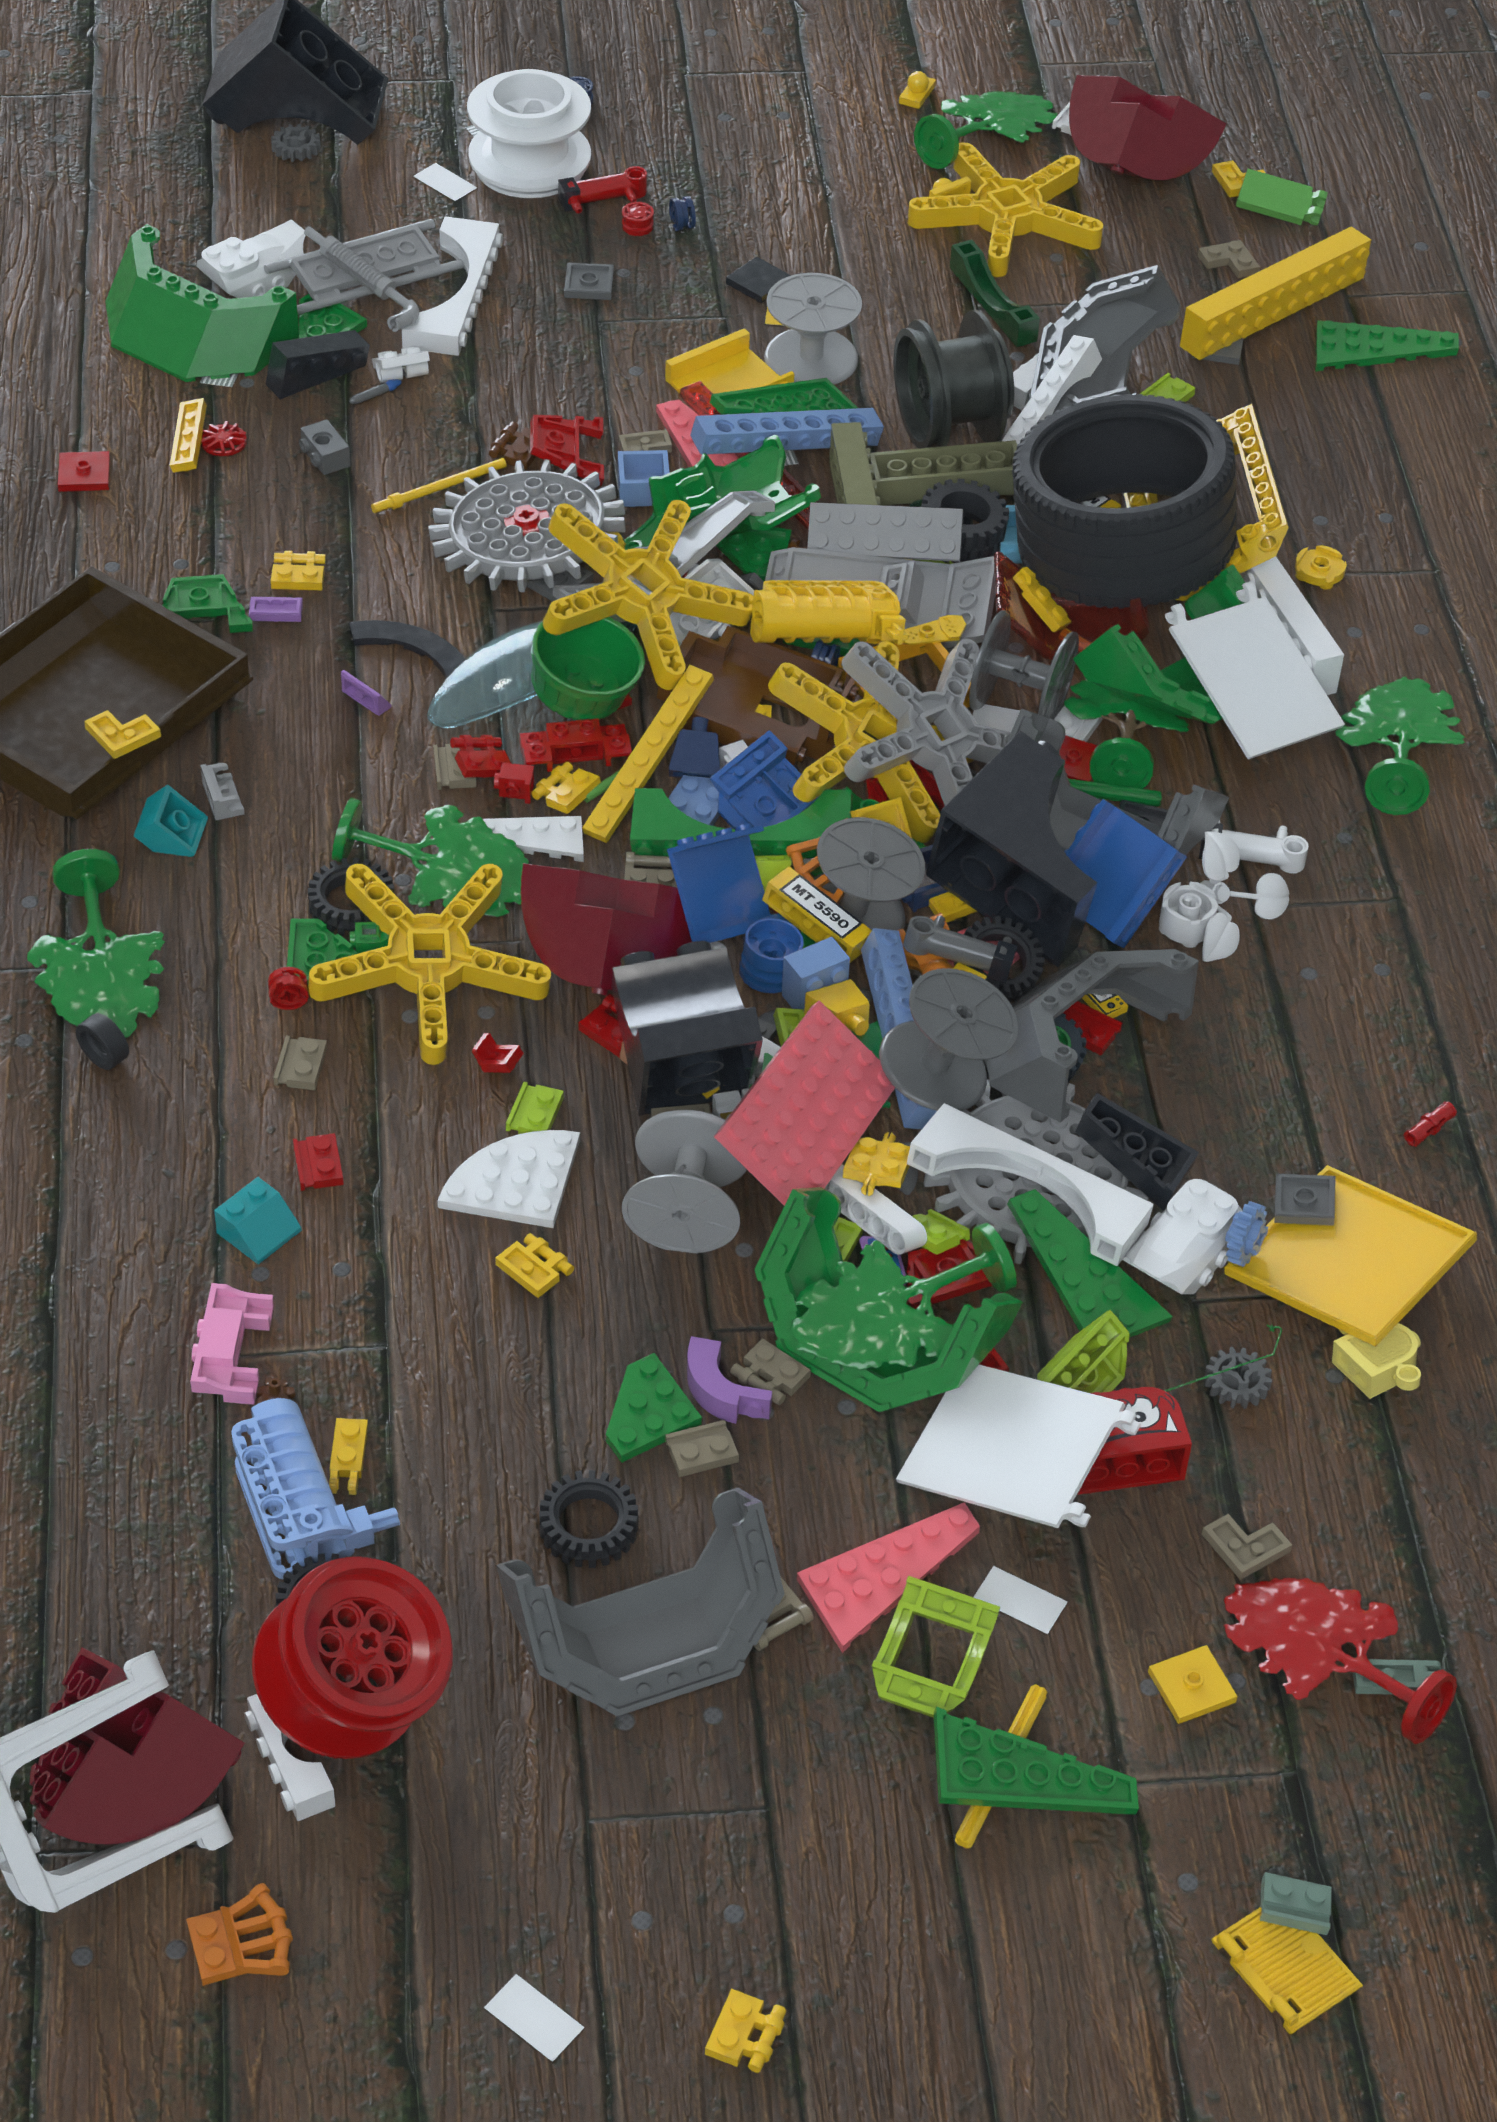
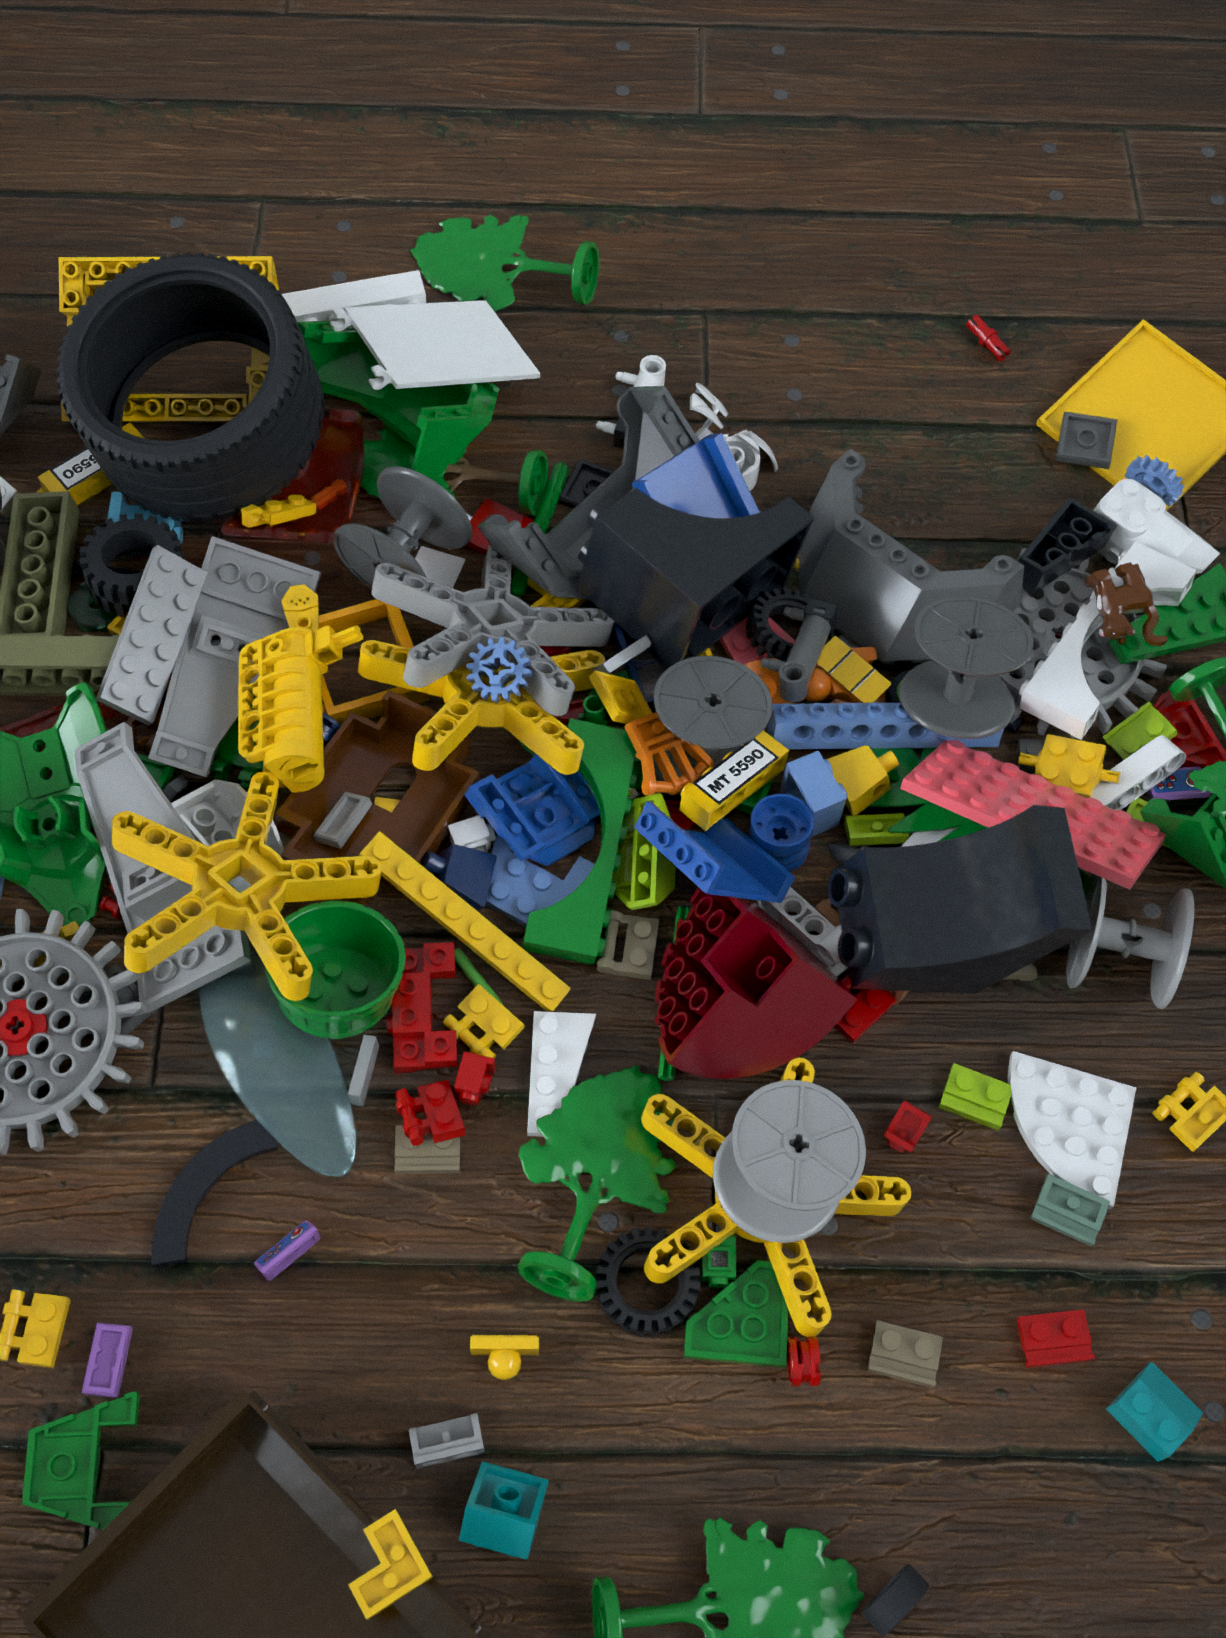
camera: 85 degrees left, 15 degrees up
(286, 817) = (504, 1352): none -> yellow tile
(431, 1169) = (1070, 1210): none -> sand green plate
(438, 926) = (788, 1161): none -> light grey piece
(515, 717) = (363, 1070): none -> light grey tile
(736, 674) = (342, 820): none -> light grey tile
(873, 717) = (497, 682): none -> medium blue gear
(921, 822) = (624, 656): none -> light grey tile
(1062, 1171) = (1124, 600): none -> reddish brown animal

